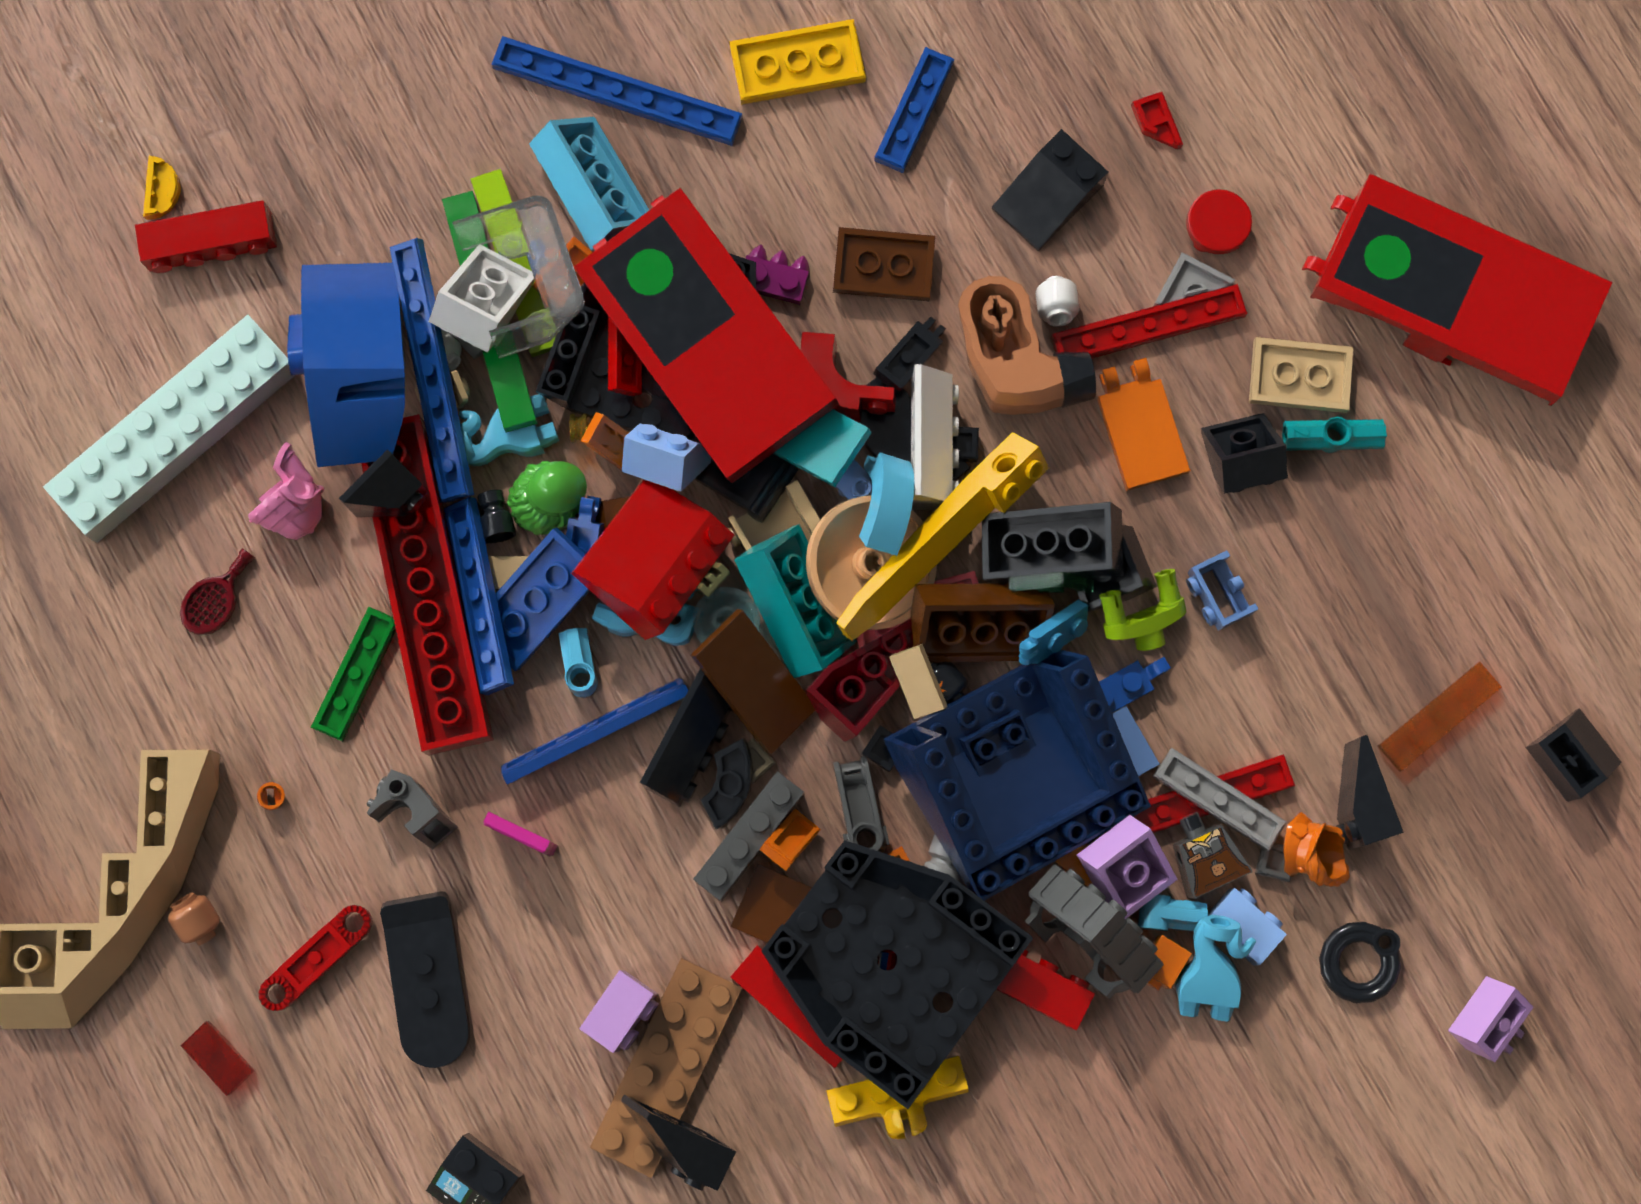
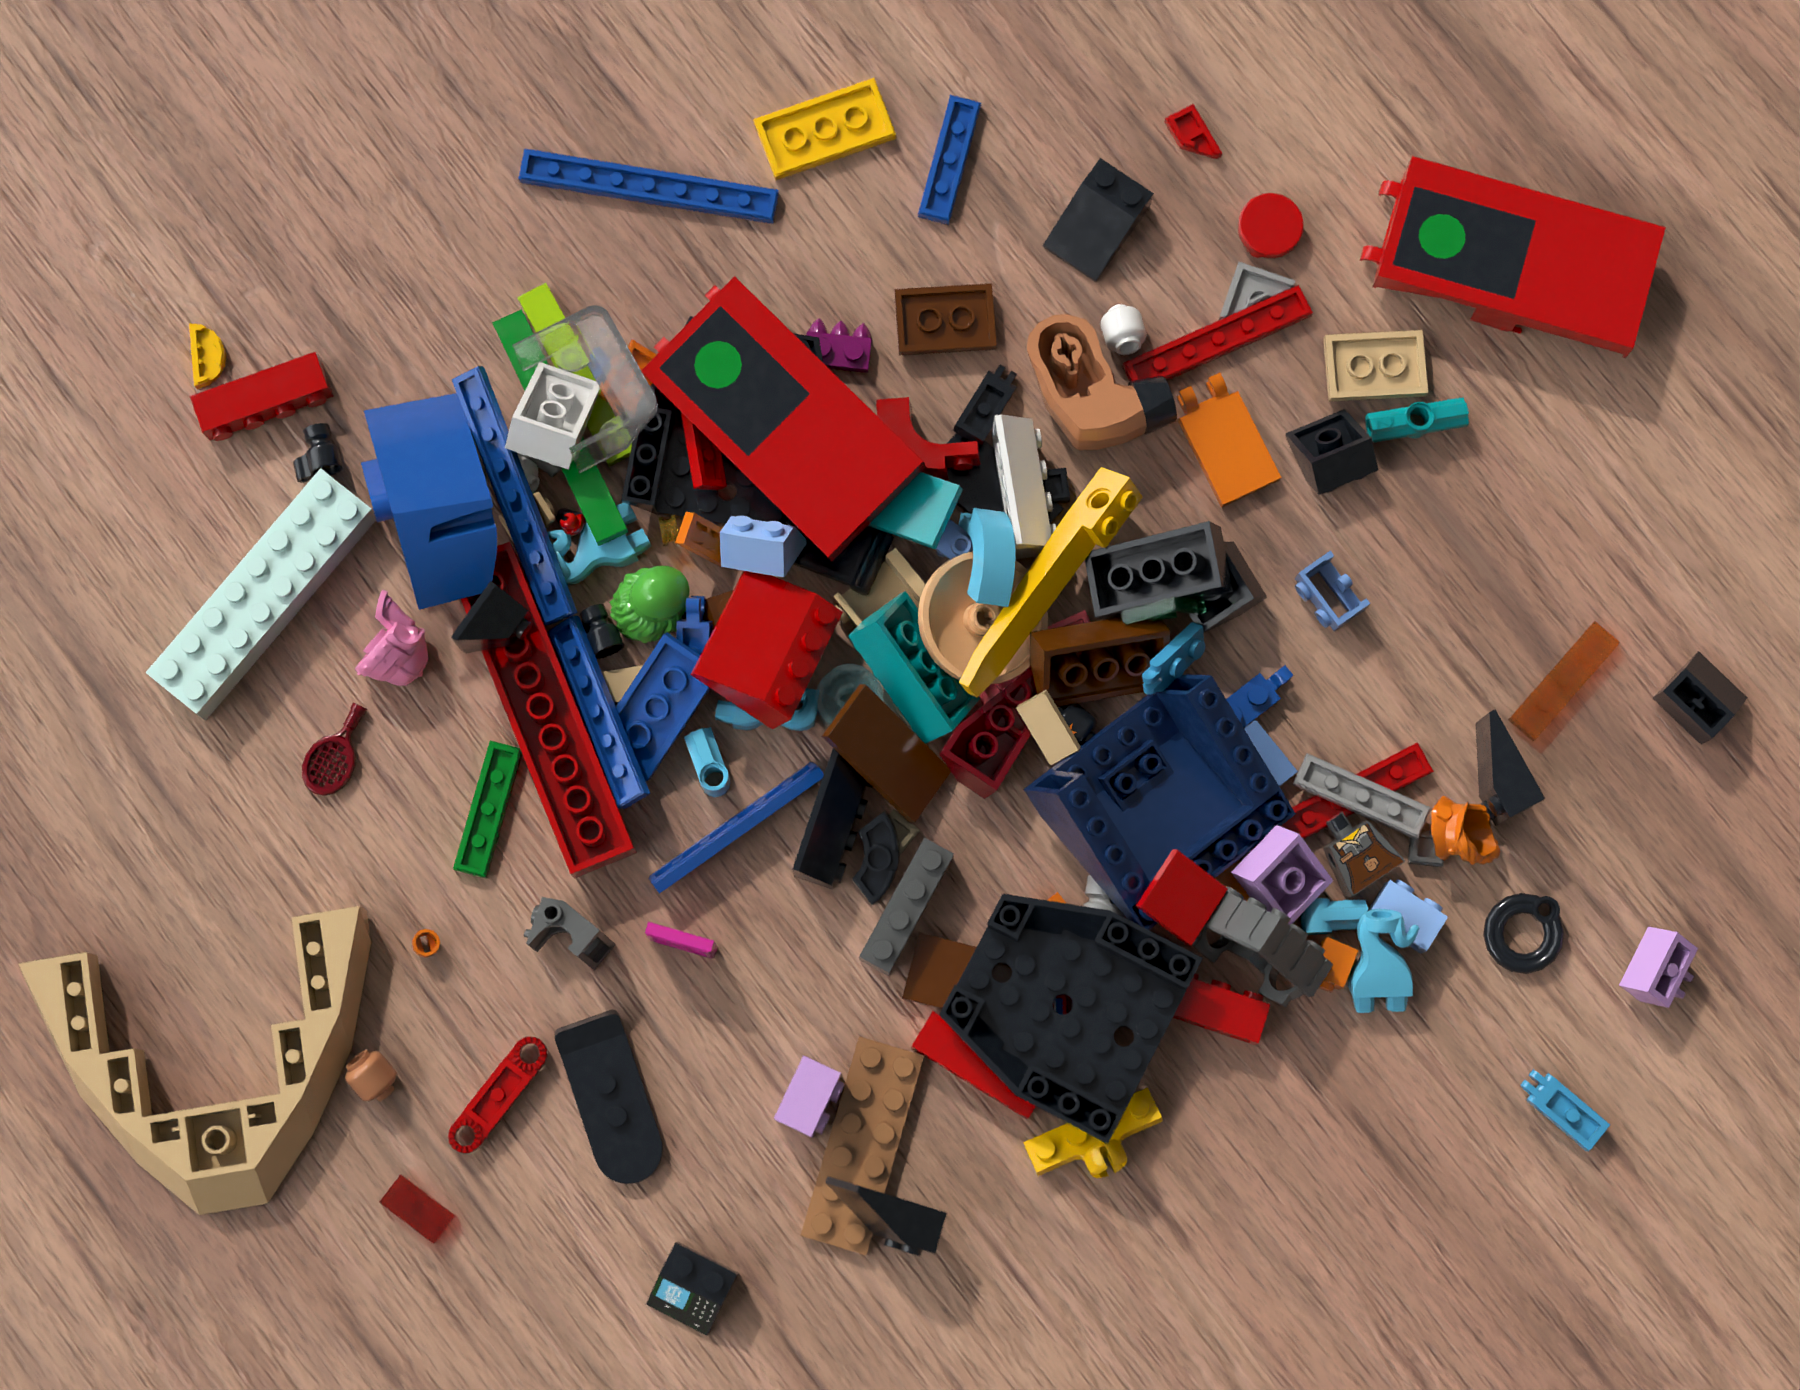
camera: 10 degrees left, 0 degrees up
(251, 301) = (320, 454): none -> black piece
(483, 404) = (571, 521): none -> red arm
(588, 177) = (637, 279): medium azure slope -> none
(714, 581) = (832, 661): olive tile -> none
(790, 839) = (947, 903): orange tile -> none
(859, 802) = (1009, 855): dark grey piece -> none
(877, 750) = (1019, 802): black tile -> none
(1022, 873) = (1181, 897): none -> red tile
(1148, 624) = (1264, 635): lime connector -> none
(1374, 1147) = (1565, 1110): none -> dark azure hinge

